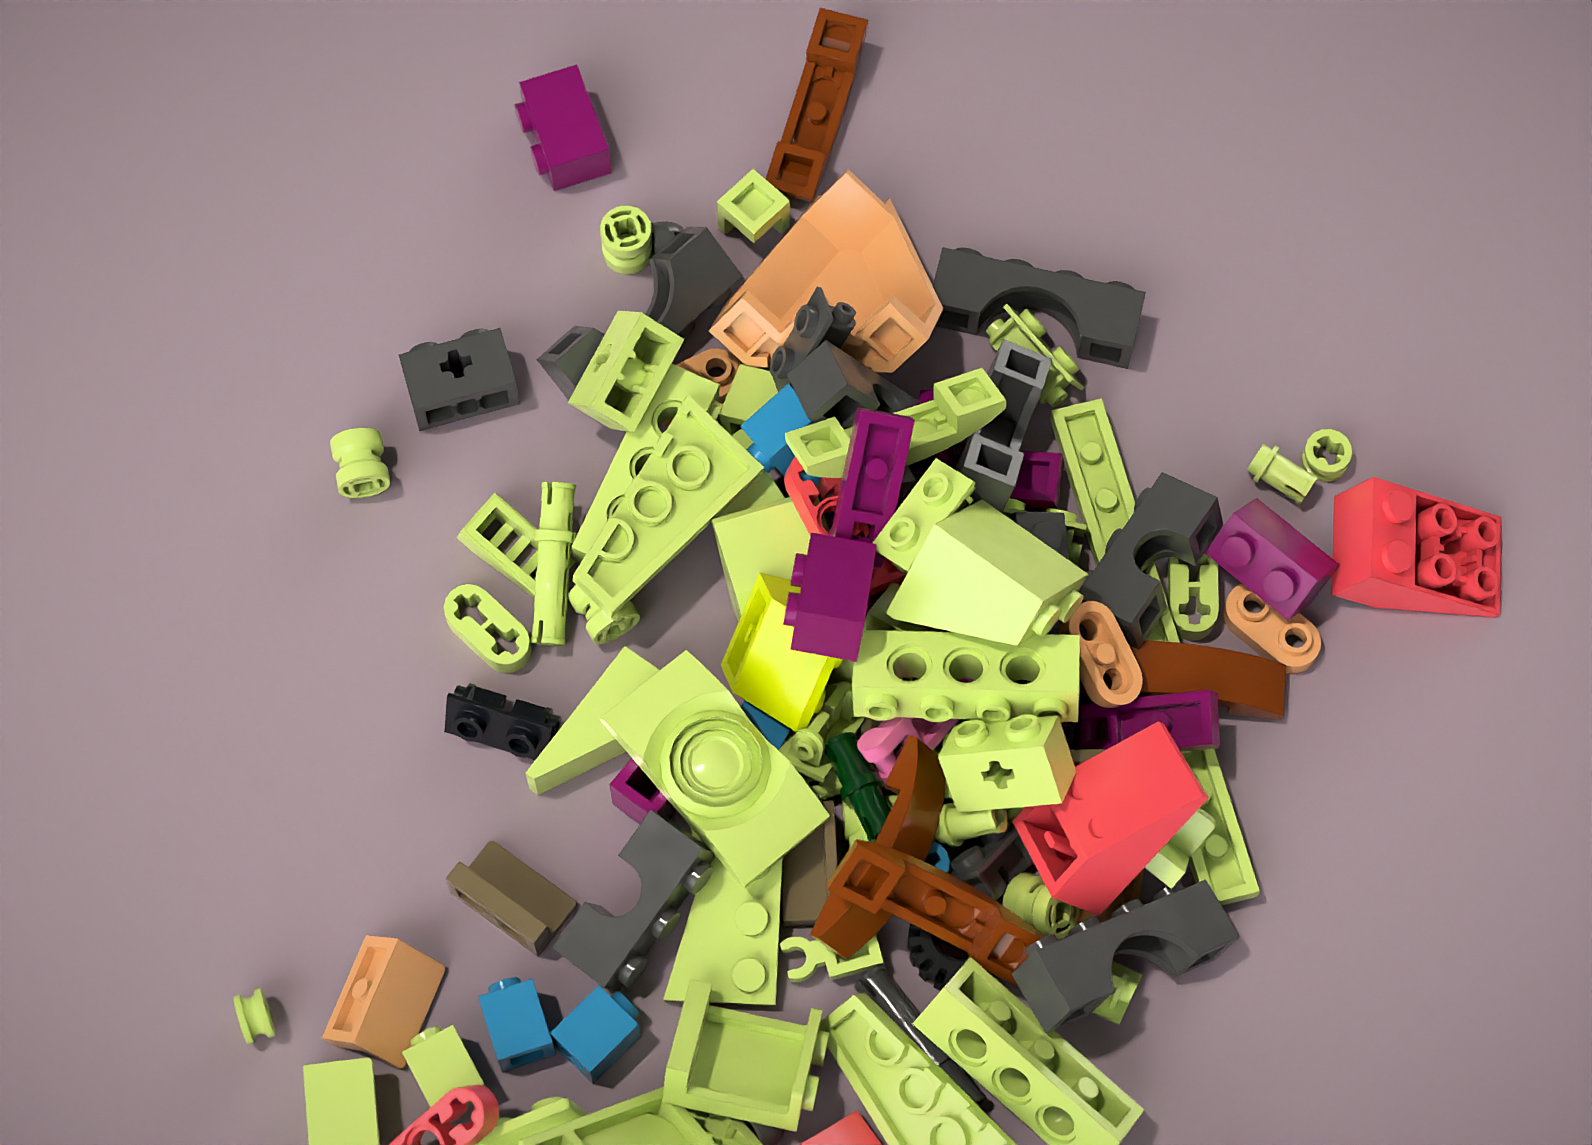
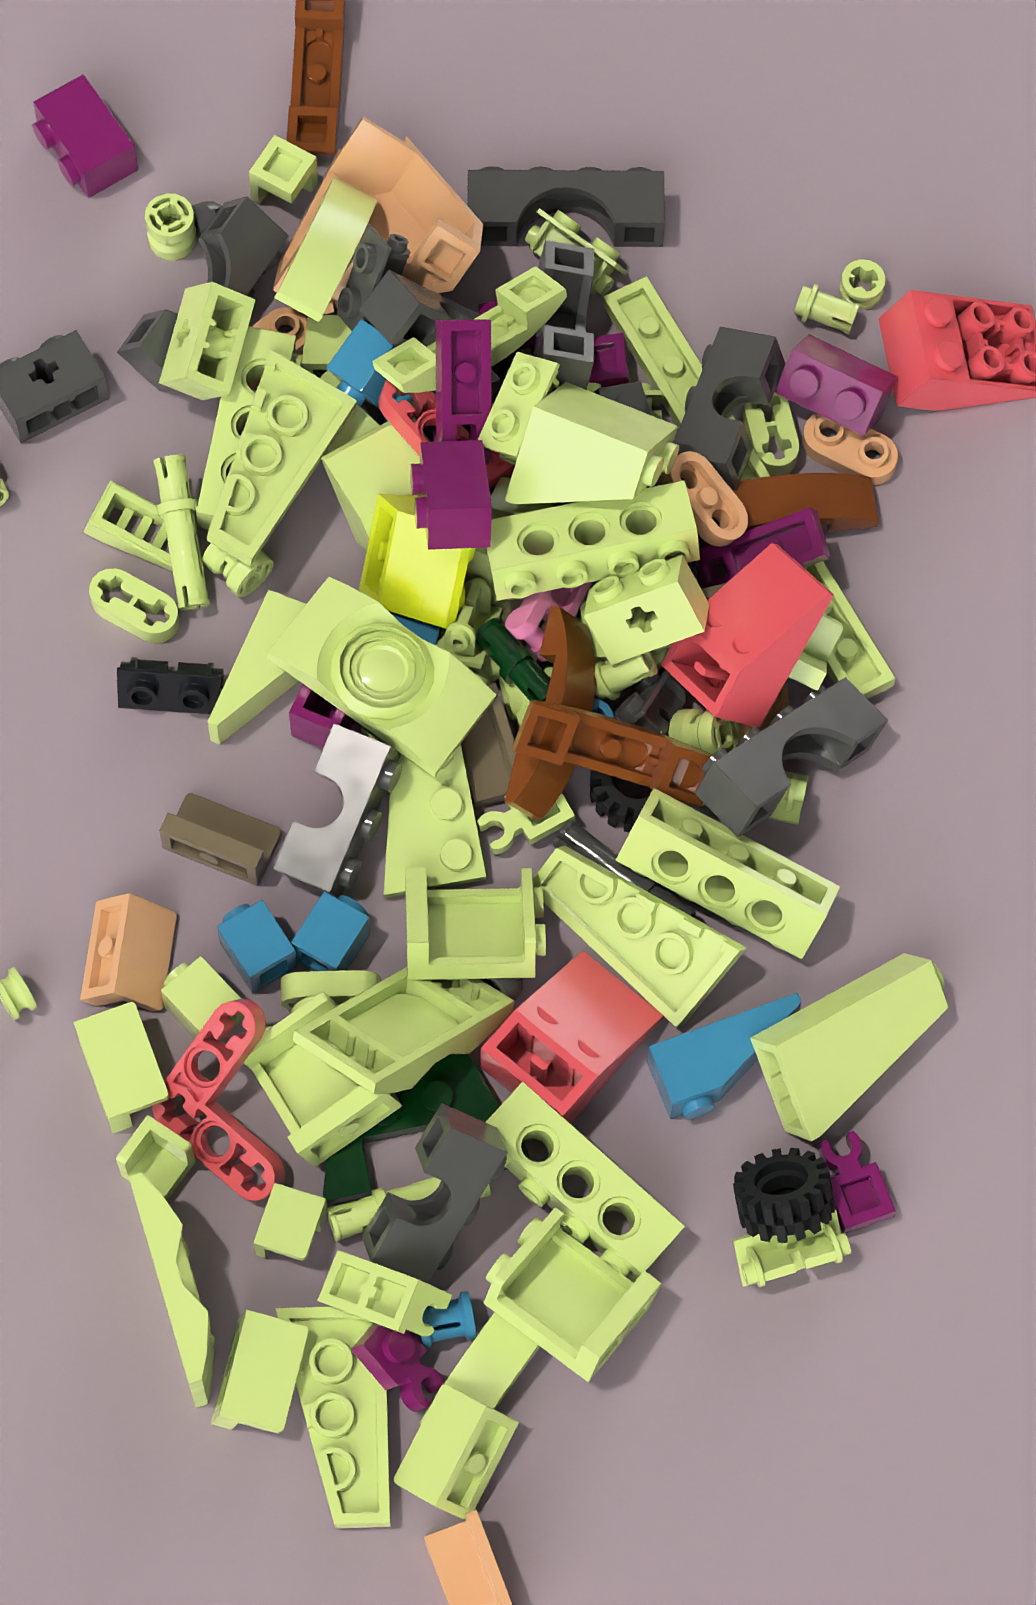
camera: 15 degrees left, 0 degrees up
(584, 1089) = (336, 984): none -> yellowish green beam
(773, 299) = (326, 249): none -> yellowish green slope

